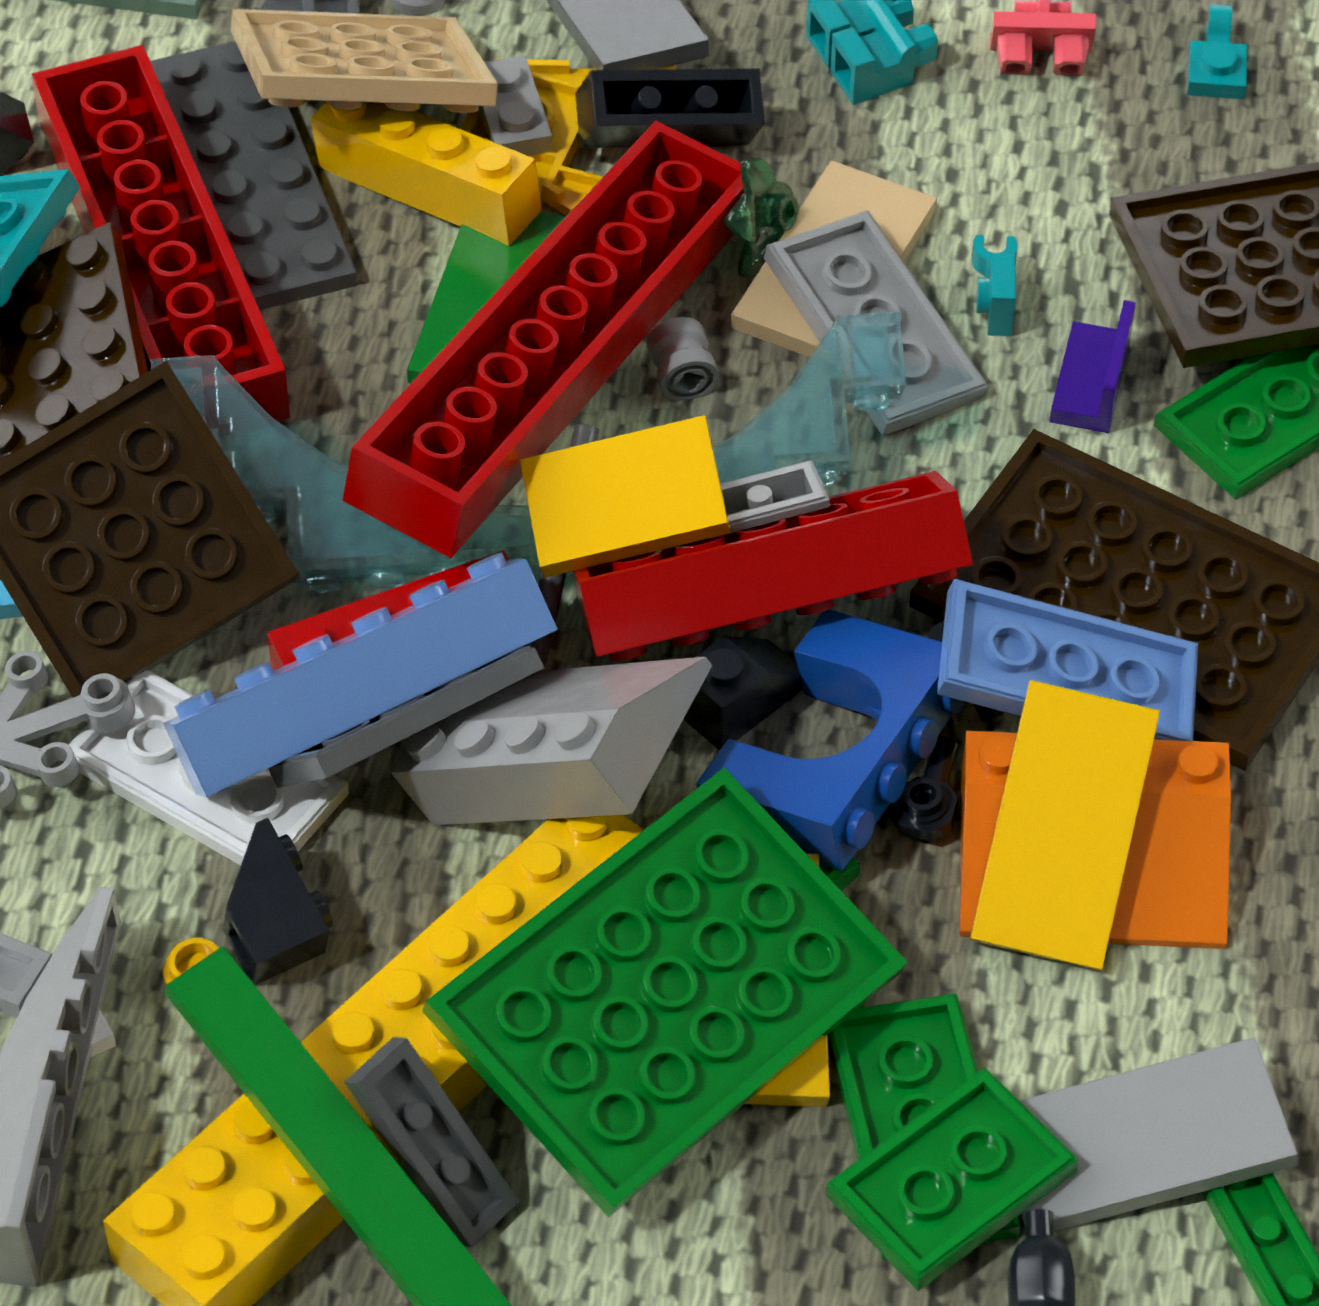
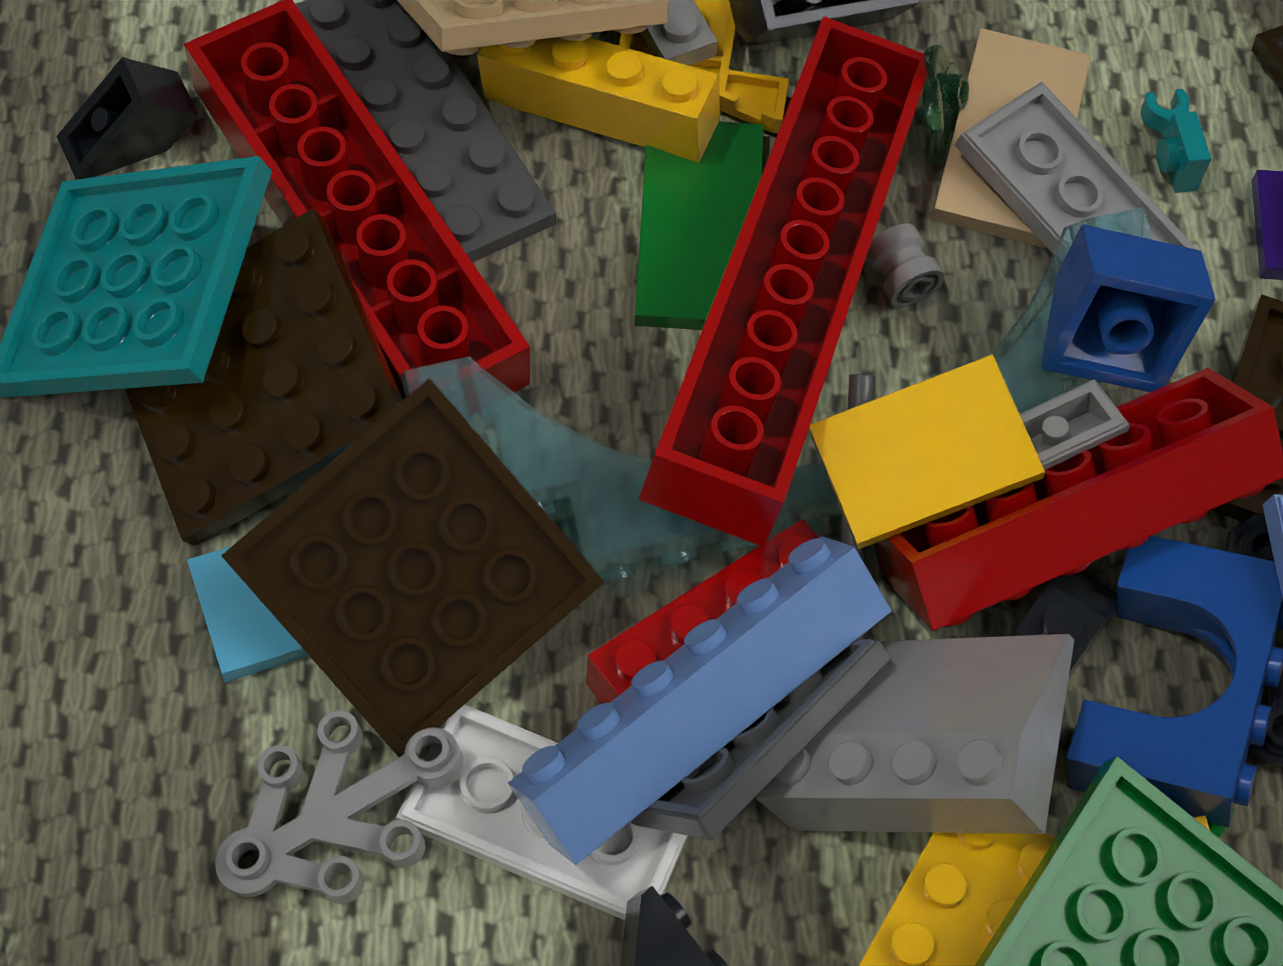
camera: 15 degrees left, 10 degrees up
(853, 400) = (1125, 309): none -> blue slope

